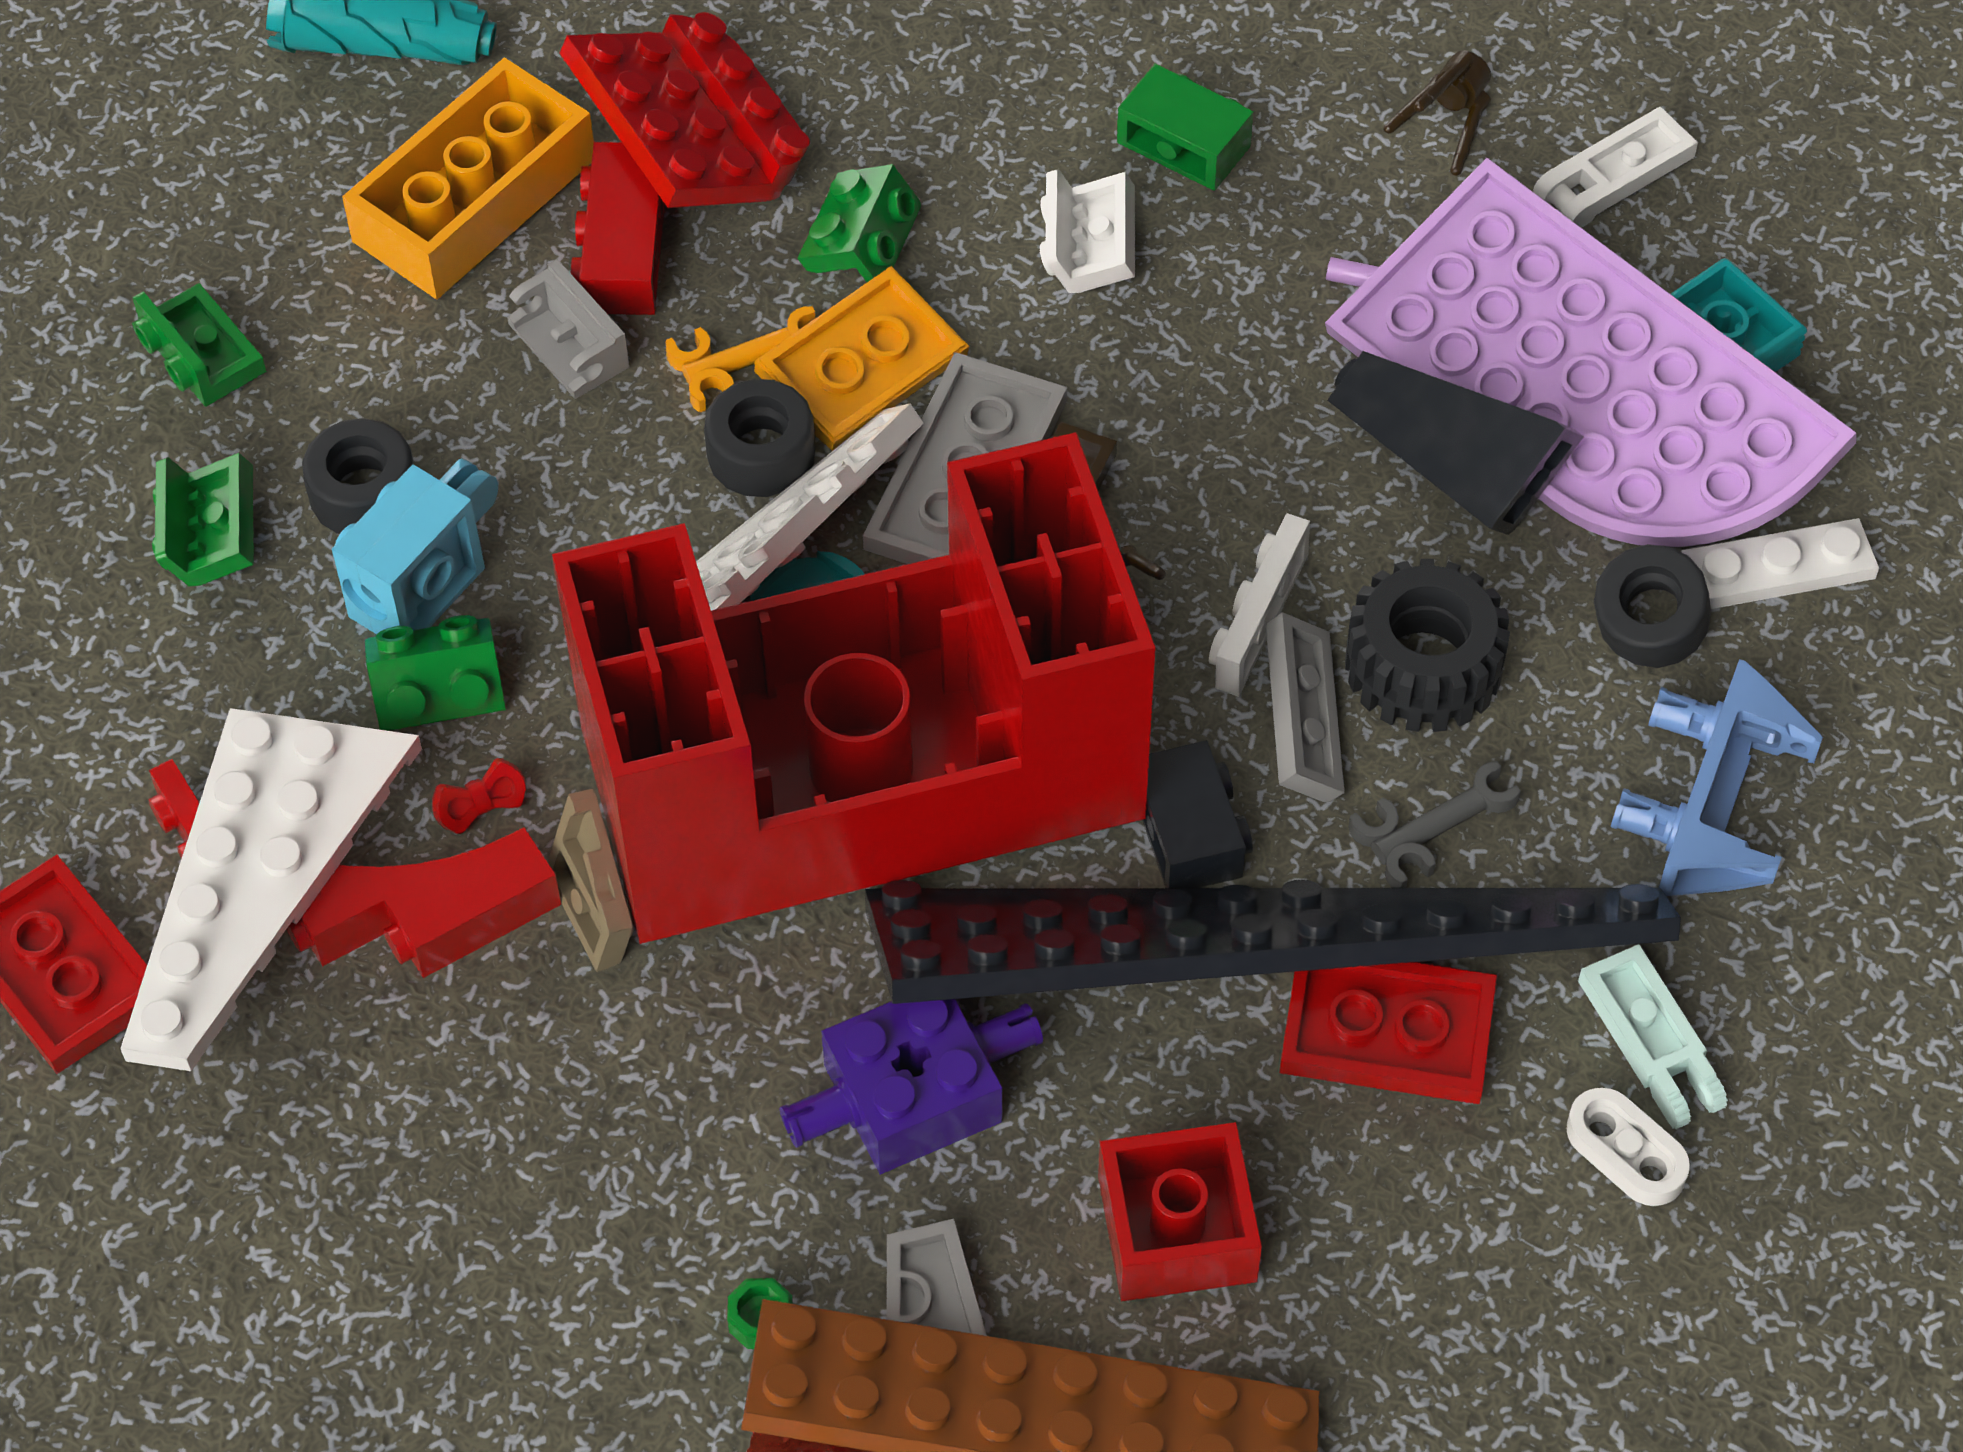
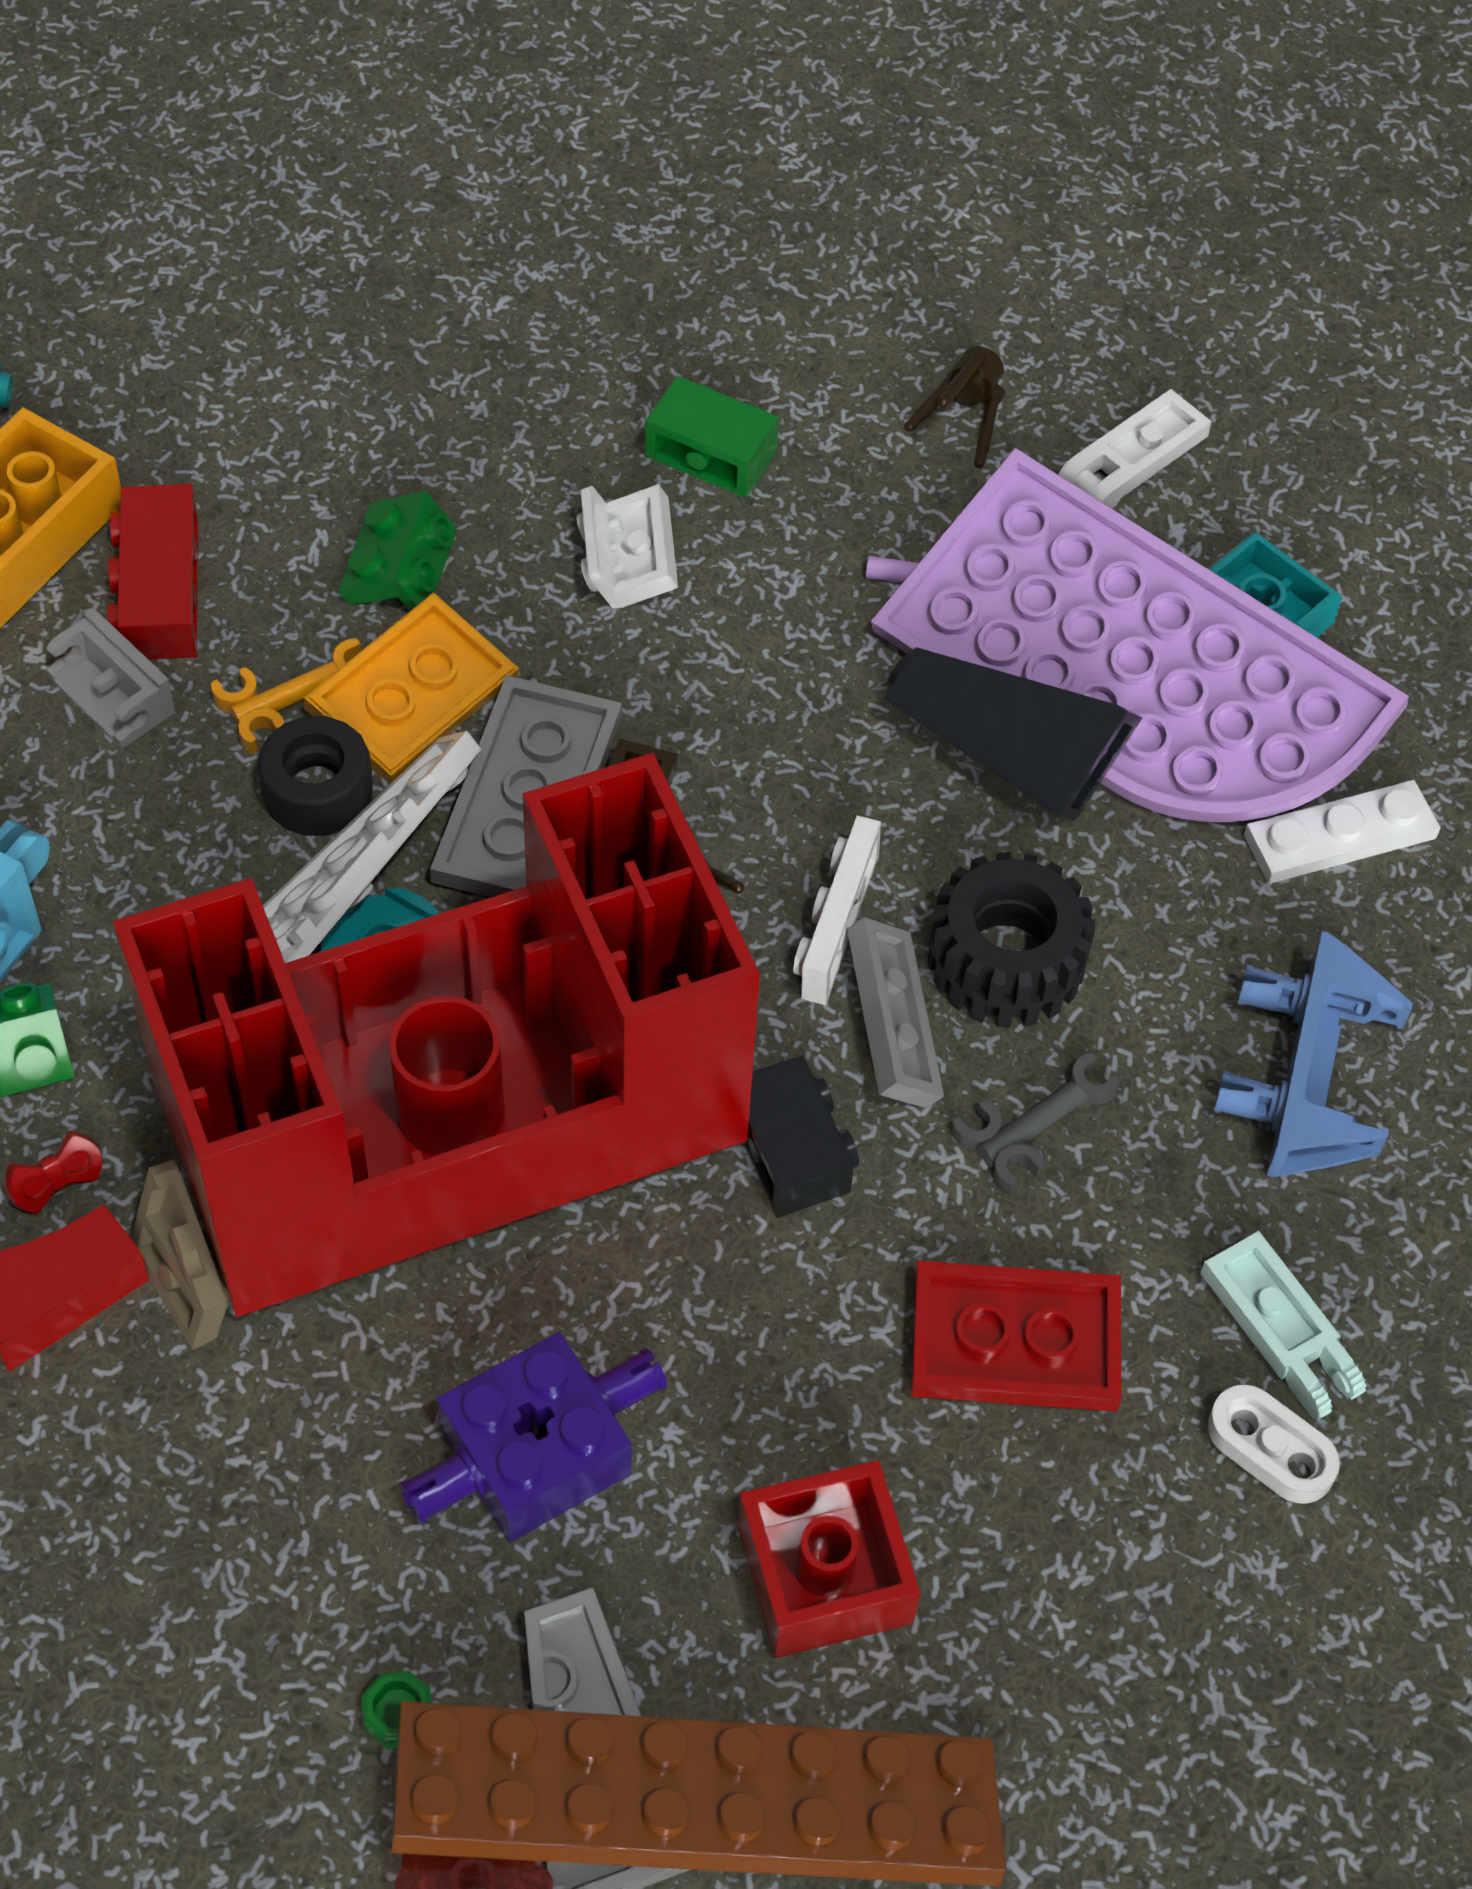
camera: 10 degrees left, 0 degrees up
(691, 111) = (217, 450): red plate -> none
(1080, 938) = (681, 1276): black wing -> none
(1644, 570) = (1228, 845): black tyre -> none

